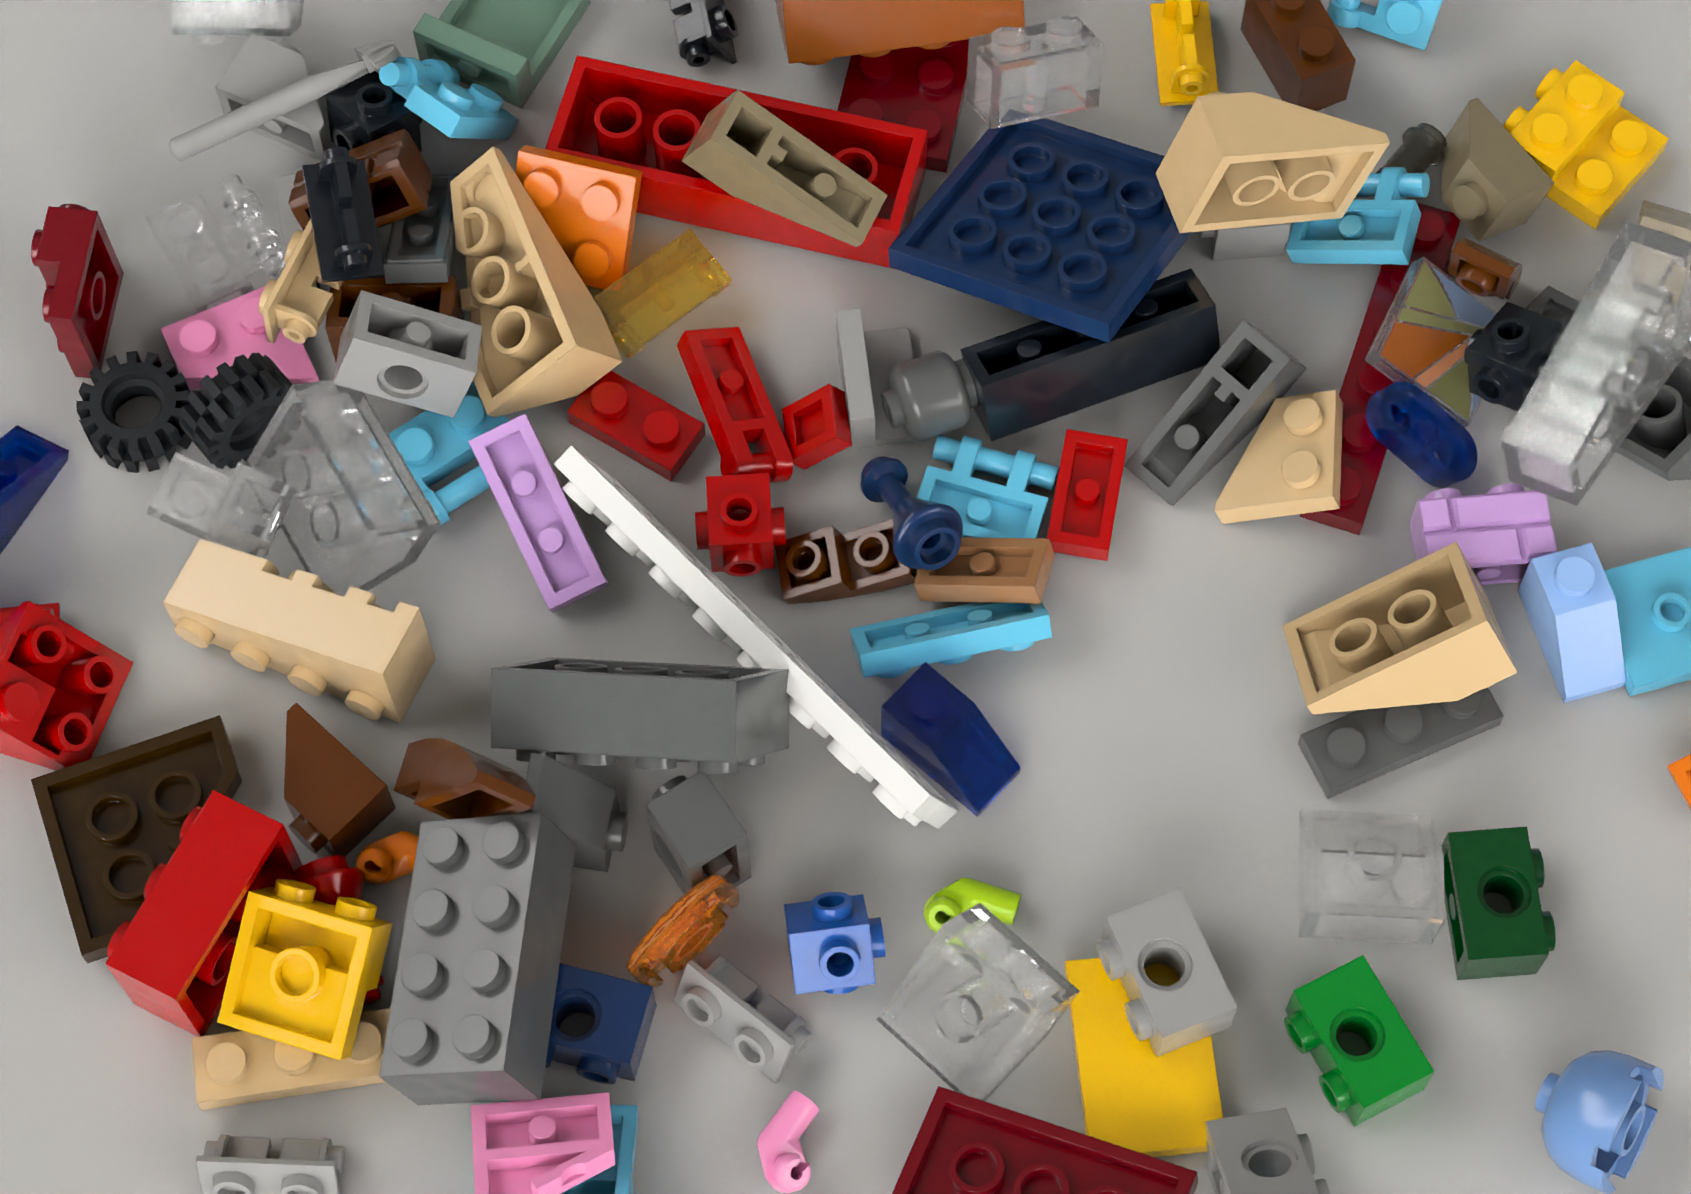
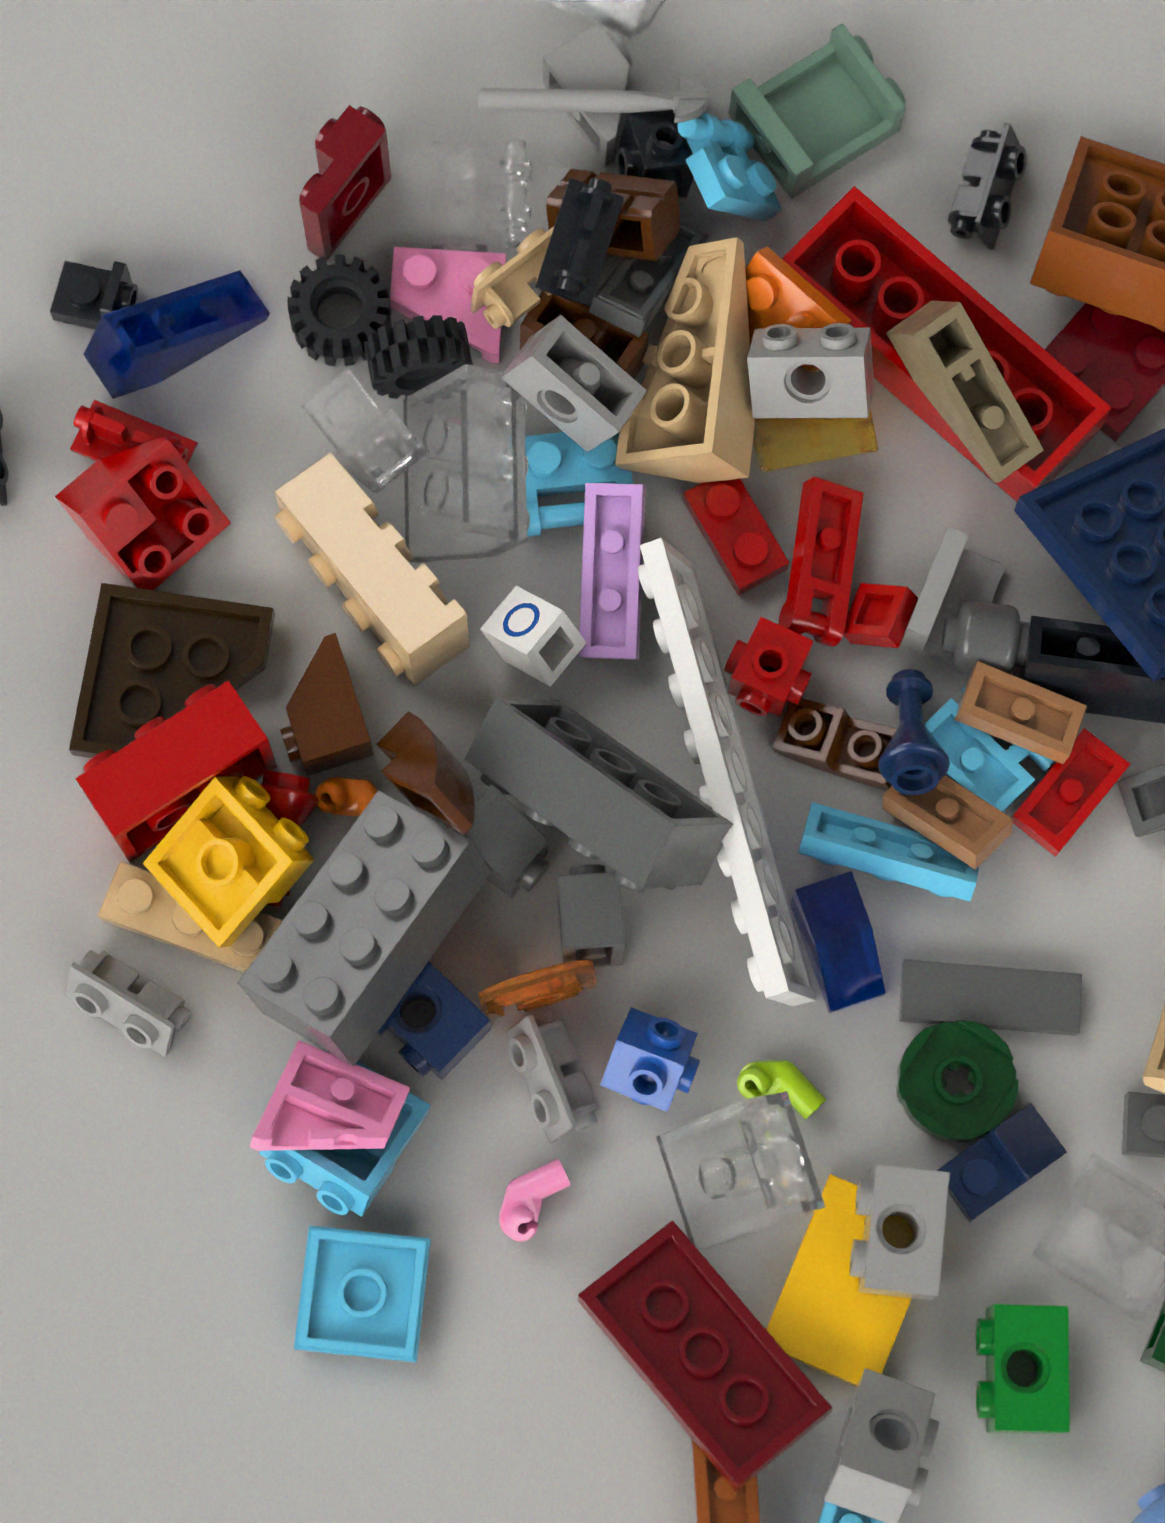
camera: 25 degrees right, 10 degrees up
(494, 609) = (533, 635): none -> white brick
(616, 262) = (788, 390): none -> light grey brick
(1000, 441) = (1020, 712): none -> medium nougat plate
(1121, 719) = (991, 997): none -> dark grey tile
(1128, 847) = (991, 1076): none -> dark green plate
(1222, 862) = (1001, 1162): none -> dark blue slope

